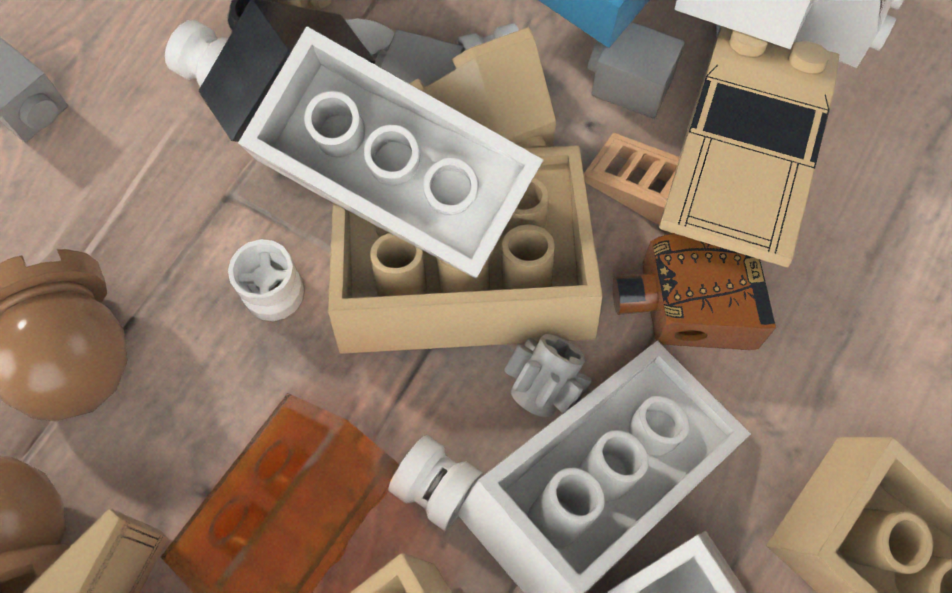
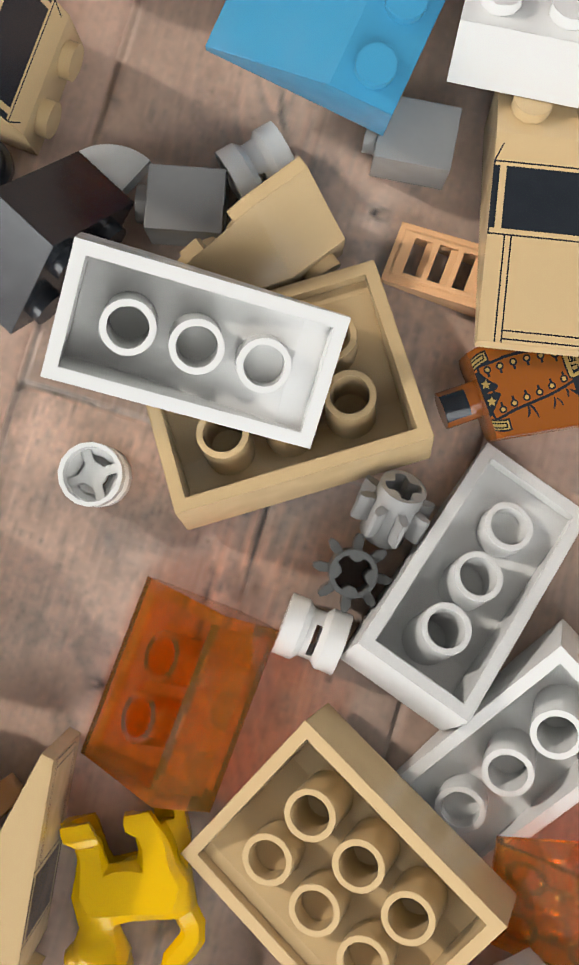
camera: 10 degrees left, 20 degrees up
(503, 416) = (369, 574): none -> dark grey gear

